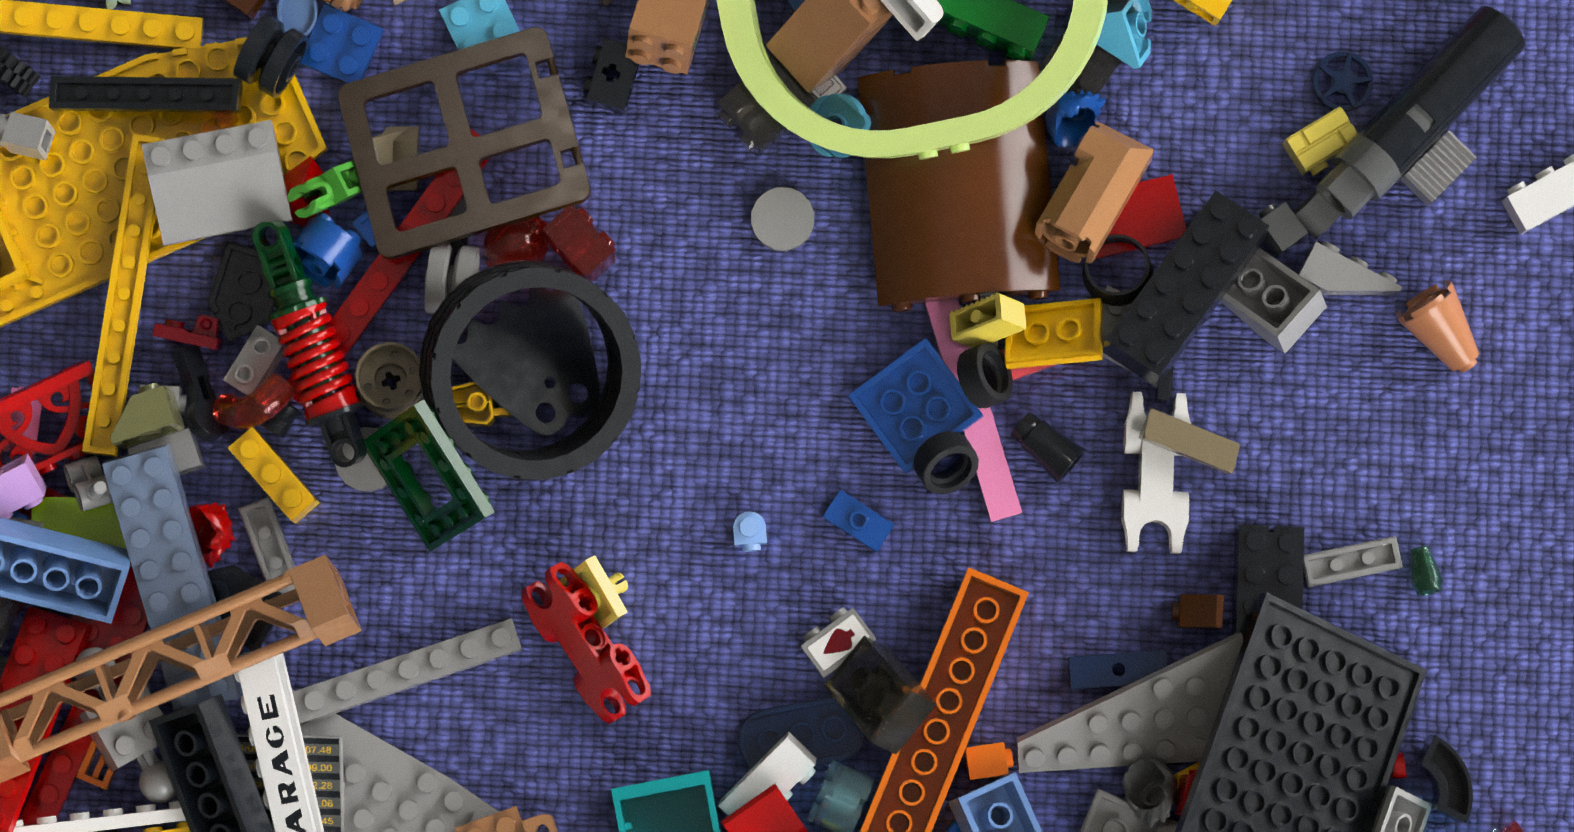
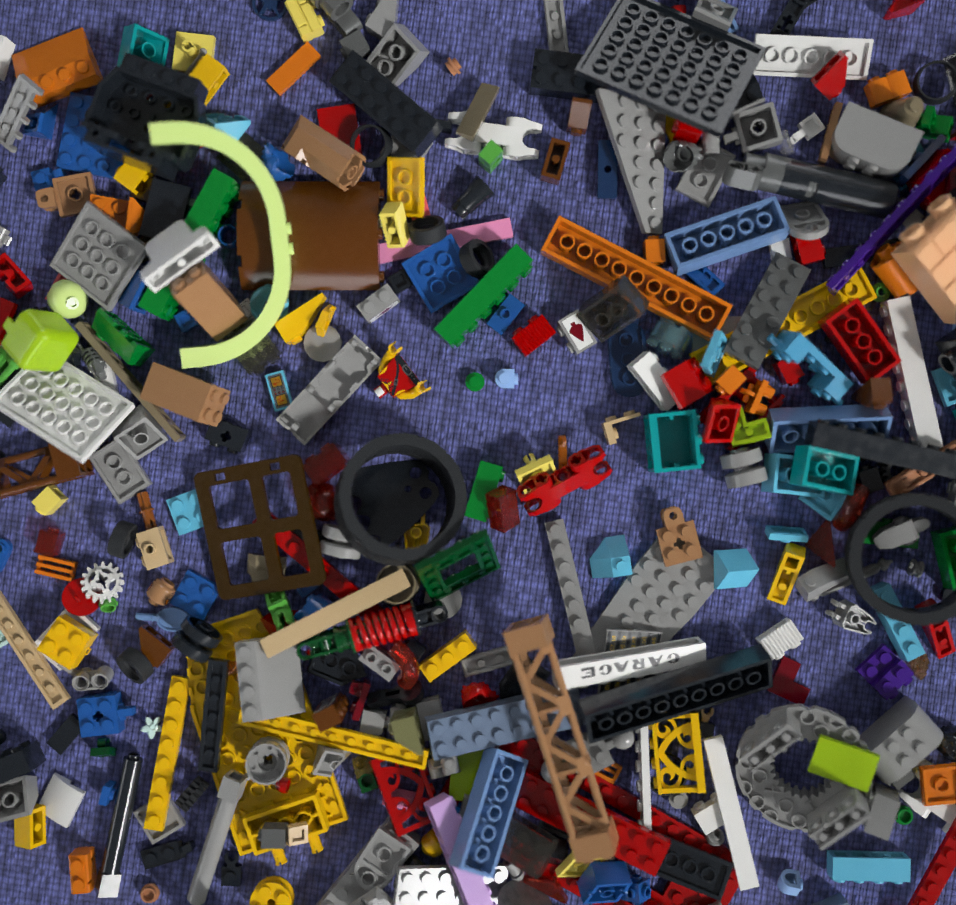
camera: 85 degrees left, 5 degrees up
(36, 217) = (281, 785): none -> red hinge
(59, 193) = (263, 770): none -> light grey wheel
(64, 353) = (364, 773): none -> leg
(83, 291) = (327, 760): none -> light grey slope
(153, 360) = (374, 721): none -> light grey slope
(167, 288) = (331, 711): none -> reddish brown brick
(333, 280) = (335, 613): none -> tan tile
(461, 737) = (611, 558): none -> medium azure slope
(529, 543) = (502, 508): none -> clear red brick
(556, 511) = (485, 481): none -> green brick
(637, 637) = (562, 451): none -> orange tile
(673, 716) = (611, 433): none -> tan bracket
(695, 154) = (279, 390): none -> tile
(704, 237) = (329, 389): none -> light grey piece
(735, 349) = (398, 377): none -> torso
(740, 479) = (474, 381): none -> green plate
(813, 176) = (298, 322): none -> yellow slope
(820, 219) = (324, 320): none -> yellow tile
(827, 569) = (533, 334): none -> red brick
(855, 305) = (378, 303): none -> light grey brick
(881, 479) = (484, 296): none -> green brick
(897, 338) = (399, 281): none -> black tile
(945, 34) = (221, 232): none -> blue piece
(1117, 470) = (490, 156): none -> bright green piece
(1121, 579) = (555, 161): none -> reddish brown brick
(1236, 130) = (293, 68): none -> orange tile
(1265, 395) = (453, 66): none -> nougat plate

